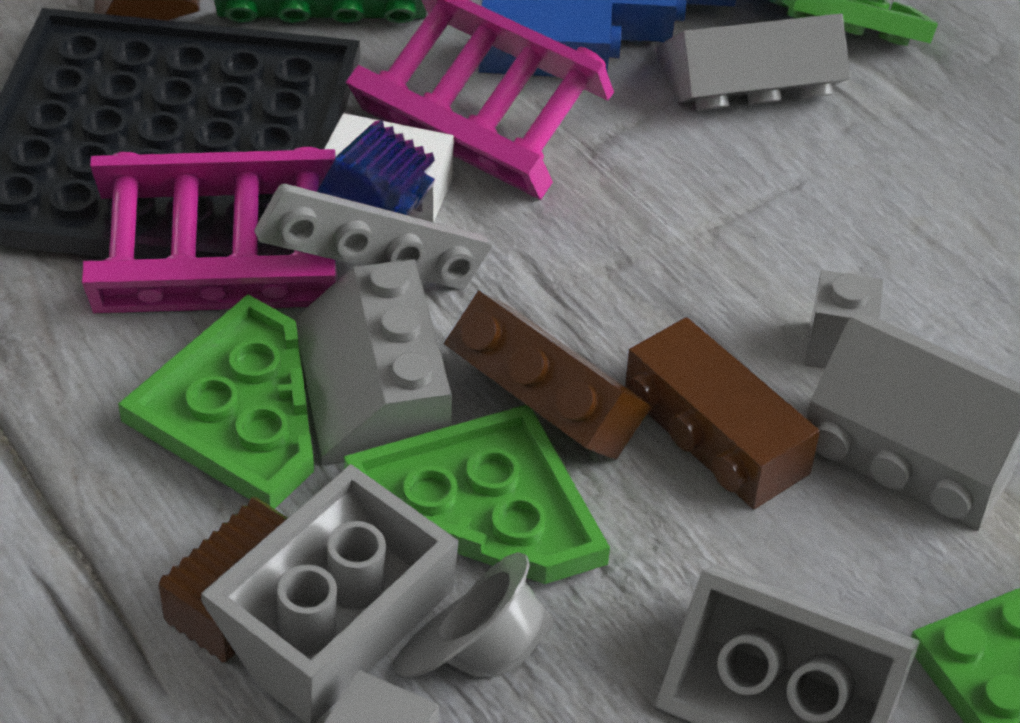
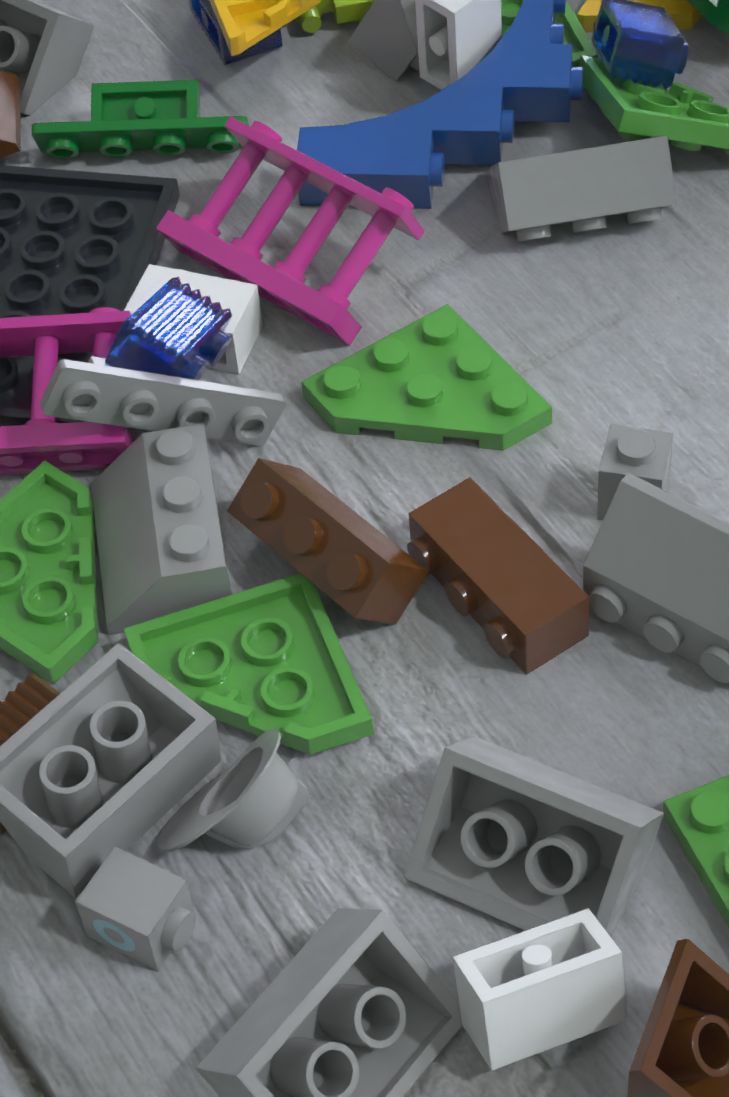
camera: 10 degrees right, 5 degrees up
(626, 236) = (428, 386): none -> bright green plate

